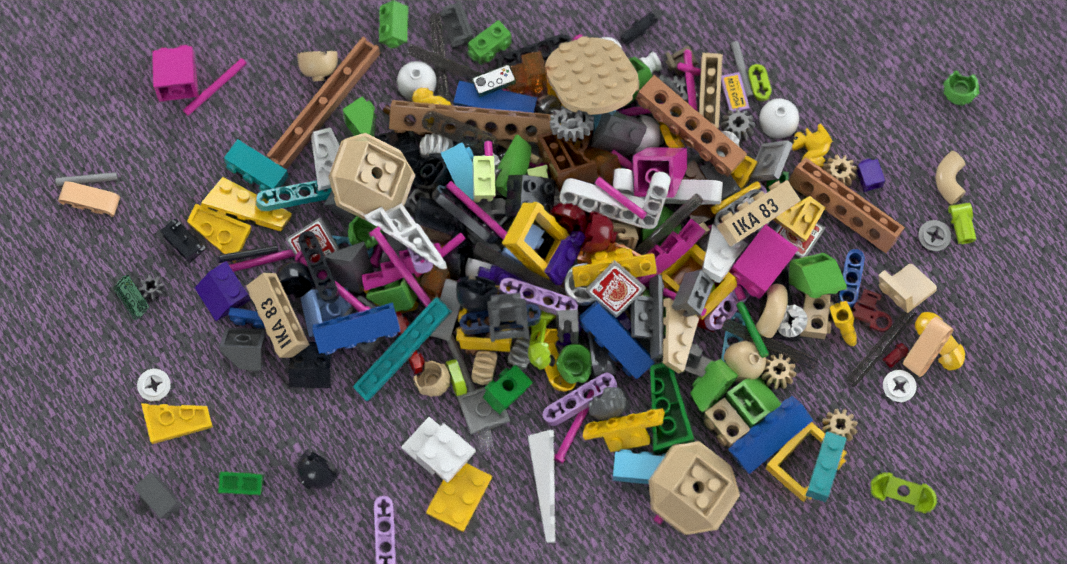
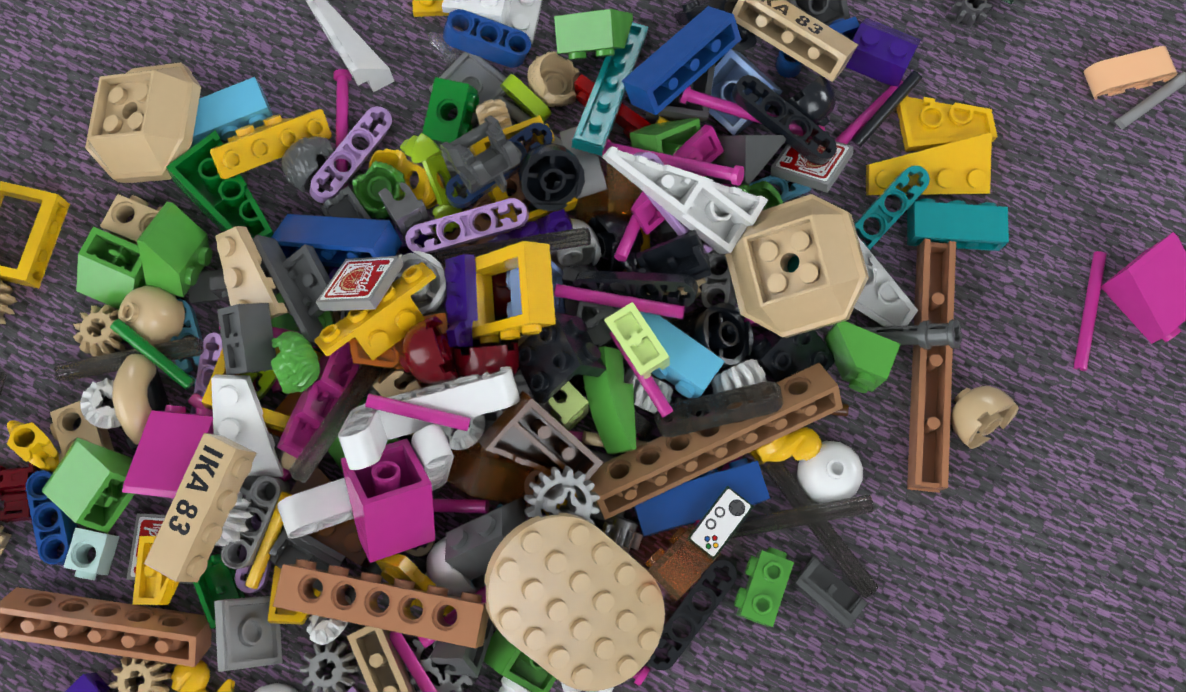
camera: 150 degrees right, 5 degrees up
(182, 240) = (978, 84): black hinge -> none
(321, 112) = (924, 334): none -> dark grey pin
(391, 389) = (592, 32): none -> bright green slope
(393, 24) = (918, 536): bright green brick -> none
(454, 417) = (472, 42): none -> blue beam
(670, 266) = (296, 363): none -> bright green hair
(770, 434) = (58, 247): blue brick -> none
(840, 241) = (80, 545): none -> light aqua brick

